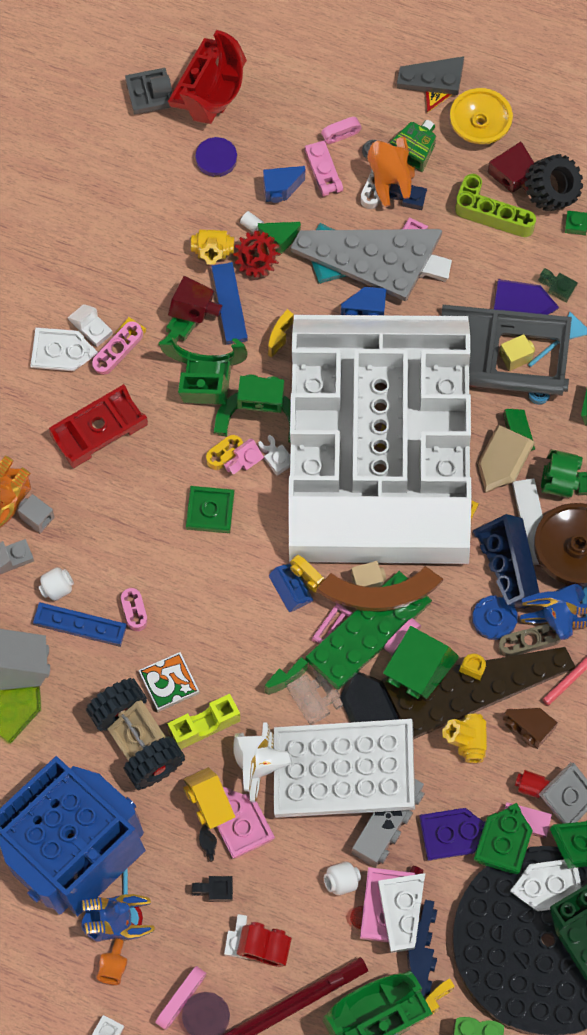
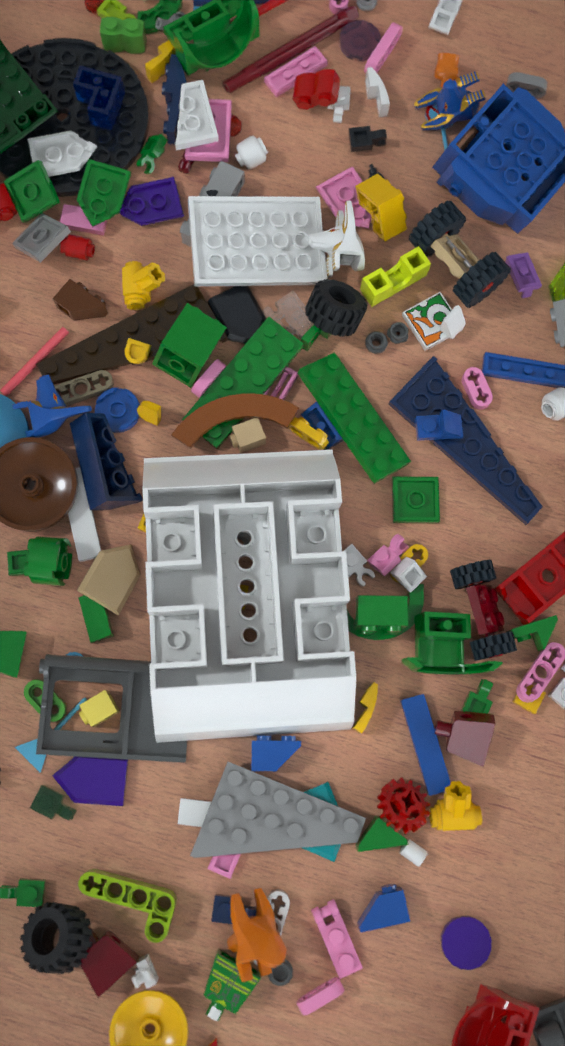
camera: 170 degrees right, 10 degrees up
(24, 940) = (533, 84): none -> light grey beam
(68, 719) = (523, 274): none -> medium lavender plate
(111, 381) = (540, 632): none -> green slope
(151, 670) = (453, 322): none -> white slope
(162, 399) = (484, 608): none -> plate
(169, 579) = (476, 452): none -> dark blue wing
(177, 566) = (442, 426): none -> blue slope
(197, 947) = (376, 90): none -> white slope
(206, 665) = (402, 329): none -> dark grey plate
(228, 438) = (408, 574): none -> white slope
(229, 657) = (376, 336): none -> dark grey plate
(255, 695) = (335, 307): none -> black tyre
(262, 588) = (354, 417): none -> green plate
(283, 982) = (284, 77): none -> bright pink tile
(449, 889) = (152, 149): none -> green plate
(463, 609) = (150, 412): none -> yellow tile
(482, 157) = (145, 973): none -> white plate
(501, 945) = (103, 94): none -> clear blue brick
(573, 364) = (35, 701): none -> bright green plate

